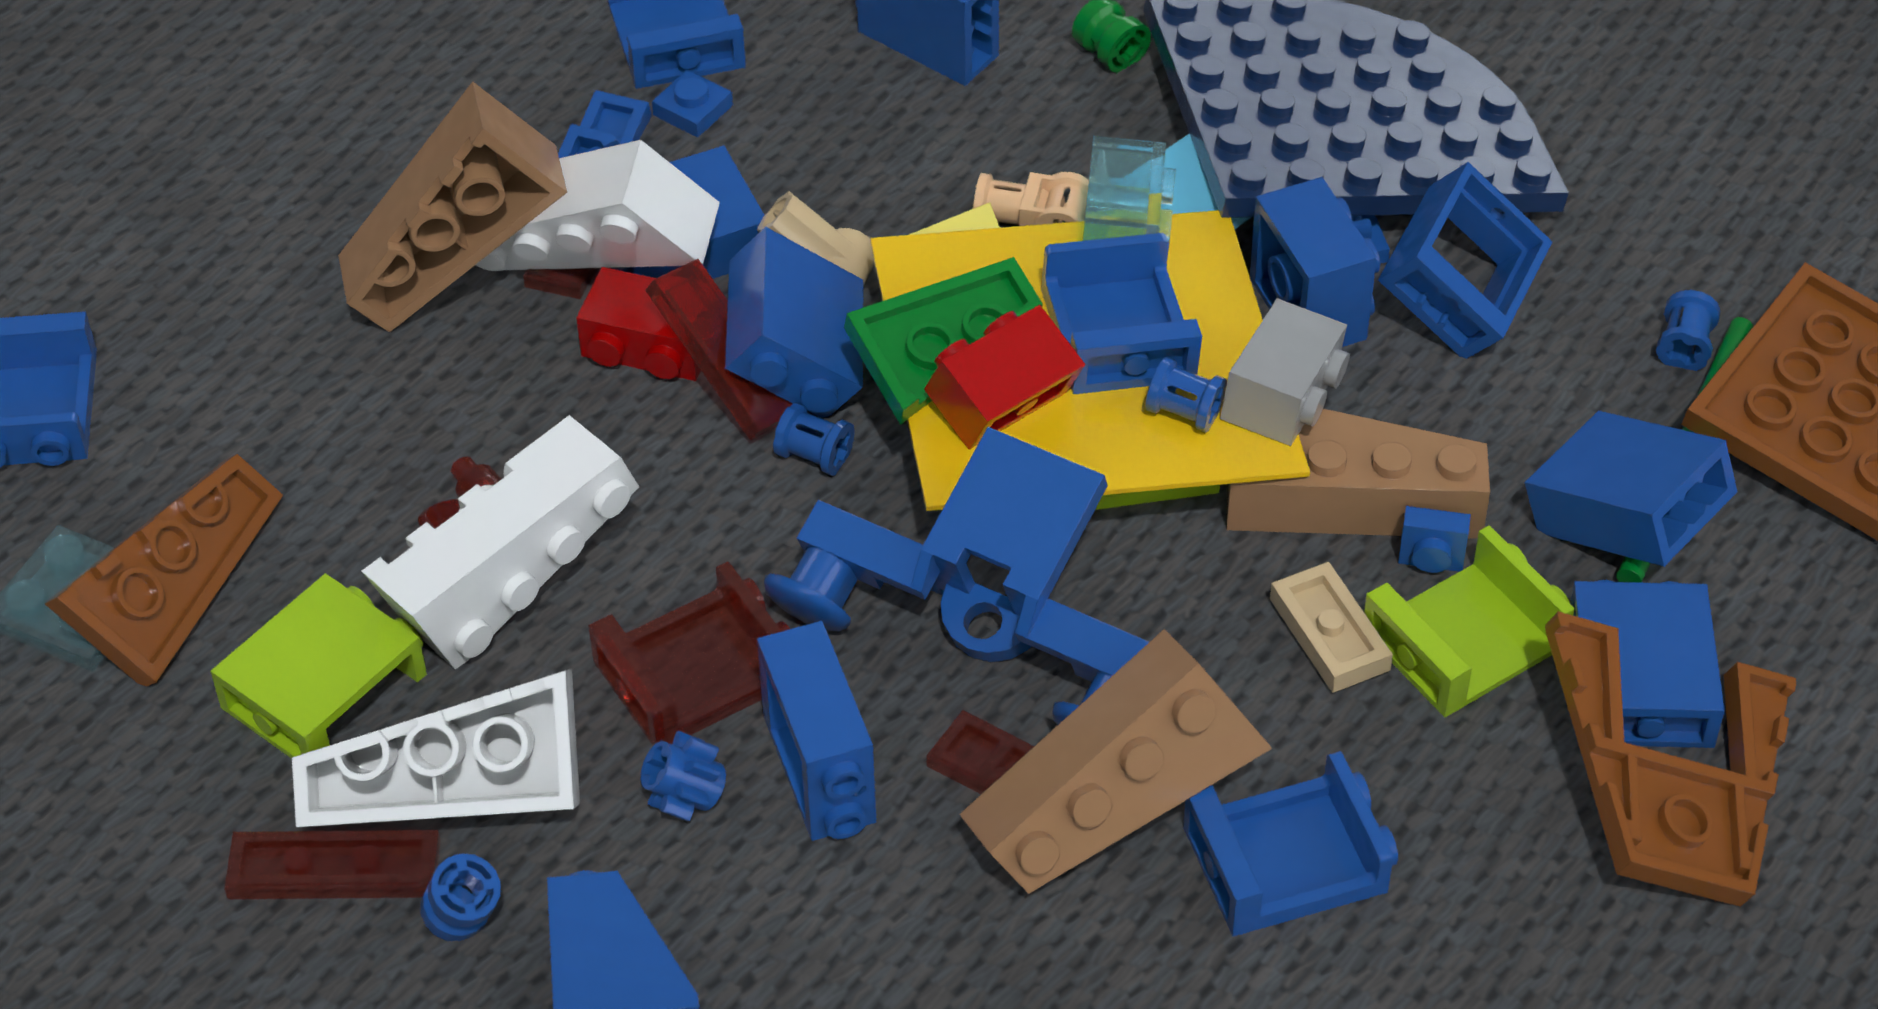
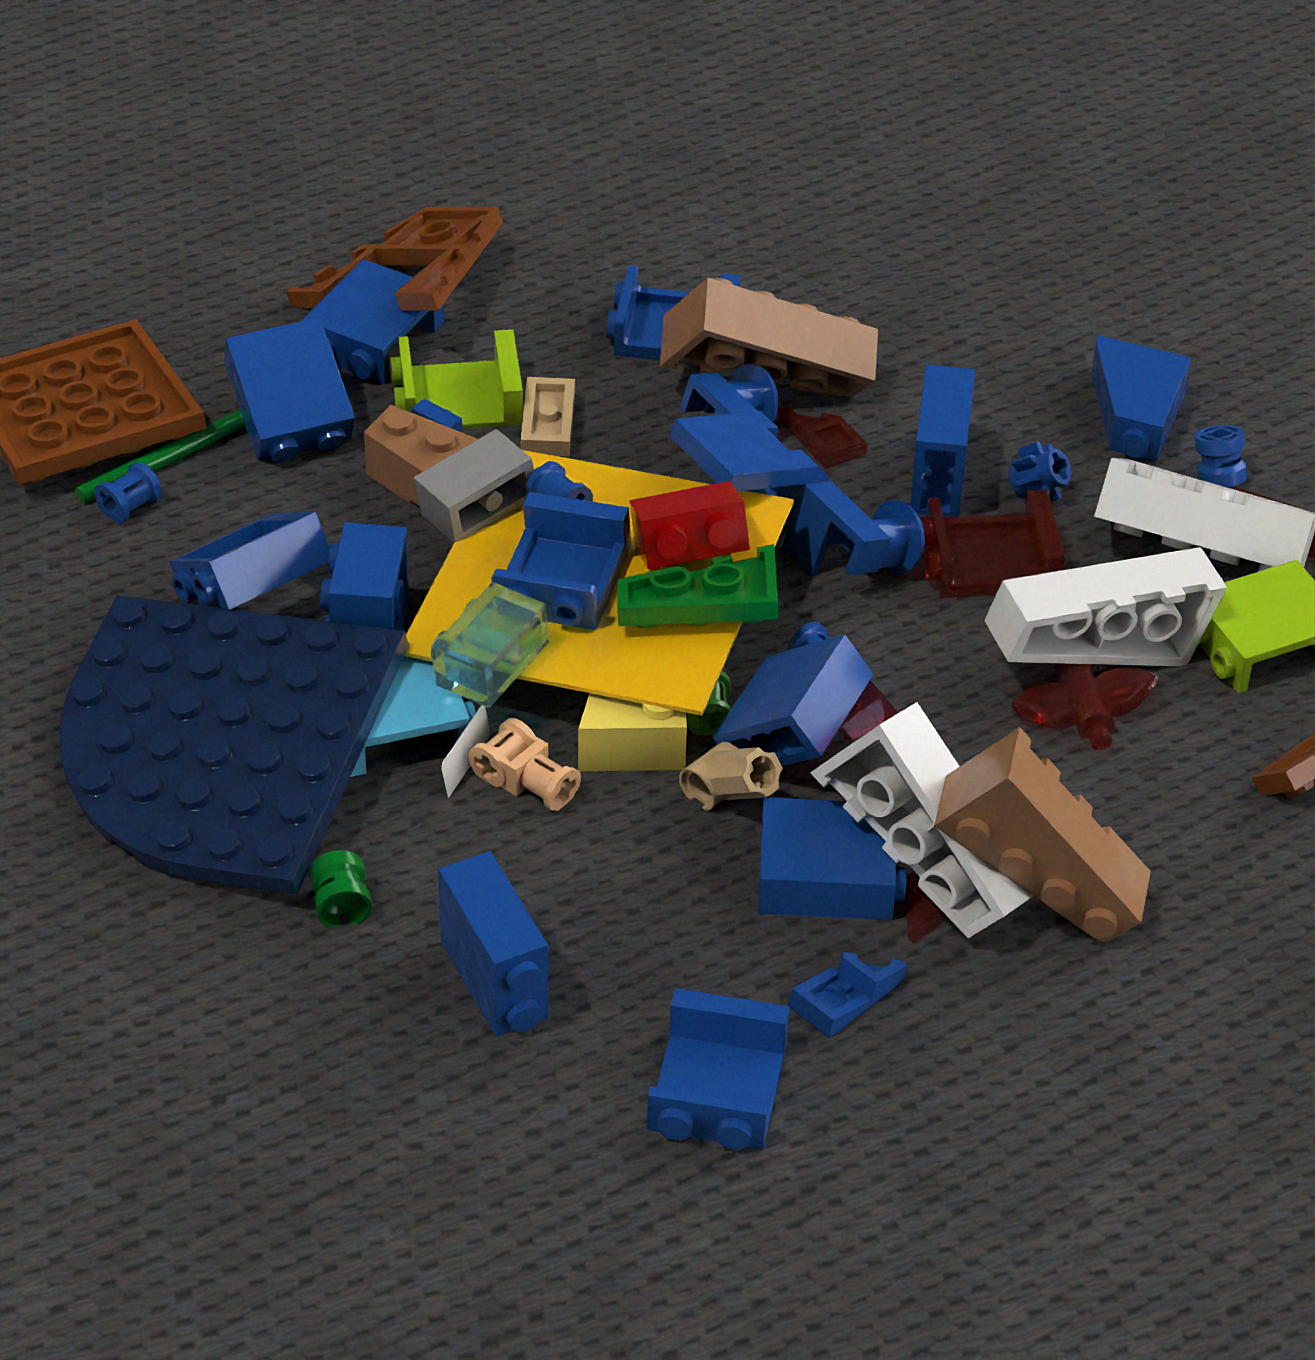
camera: 155 degrees left, 5 degrees down
(692, 103) = (749, 982): blue plate -> none

